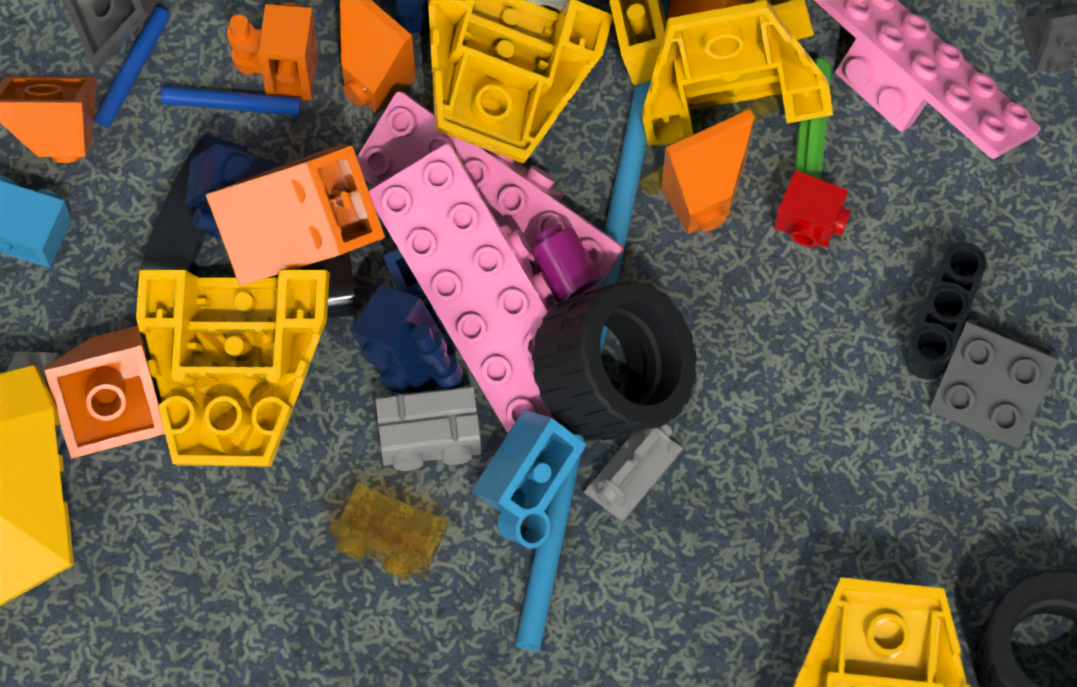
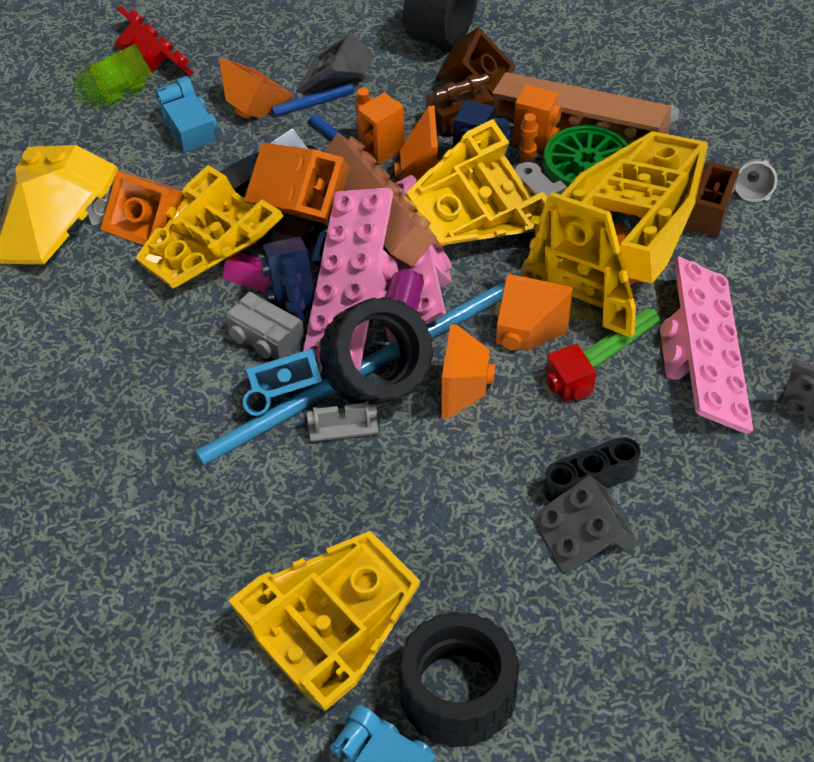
camera: 45 degrees right, 15 degrees down
(293, 129) = (407, 230): none -> nougat brick
(336, 366) = (245, 271): none -> dark pink slope
(389, 532) = (193, 357): clear yellow bracket -> none
(710, 302) = (464, 372): none -> orange slope

